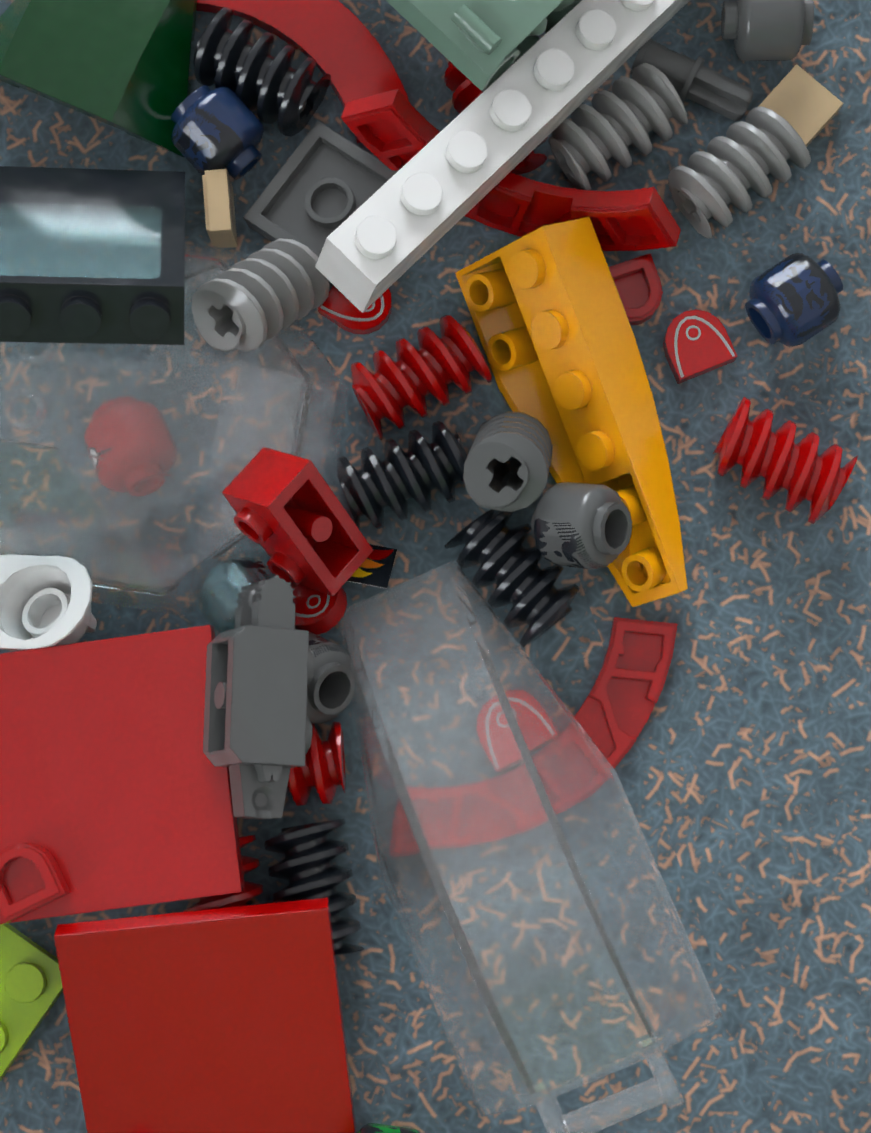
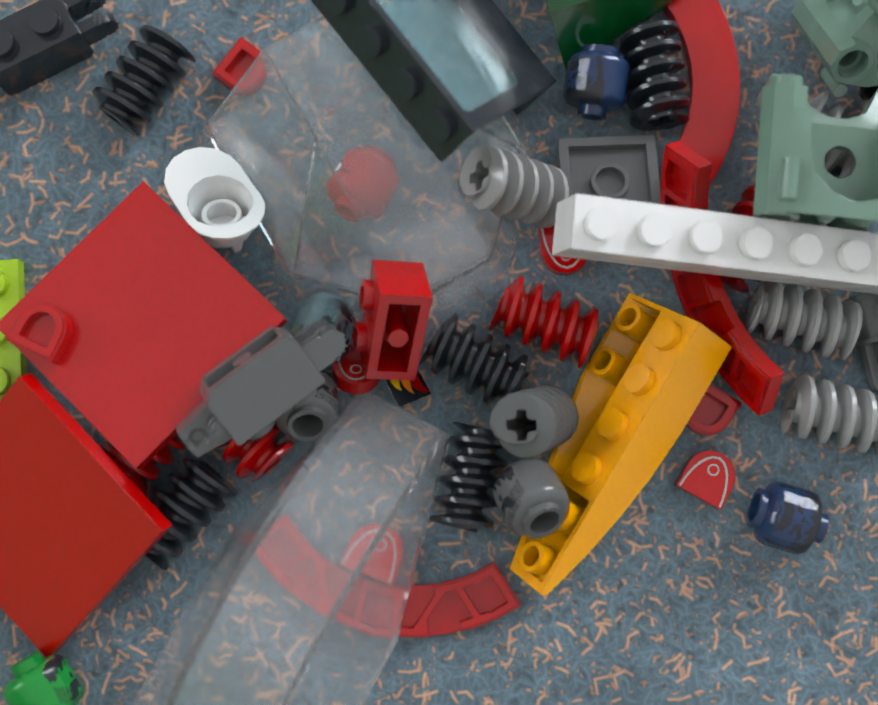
camera: 50 degrees right, 0 degrees up
(219, 208) = (551, 120): tan tile -> none
(782, 461) = (677, 593): red piece -> none

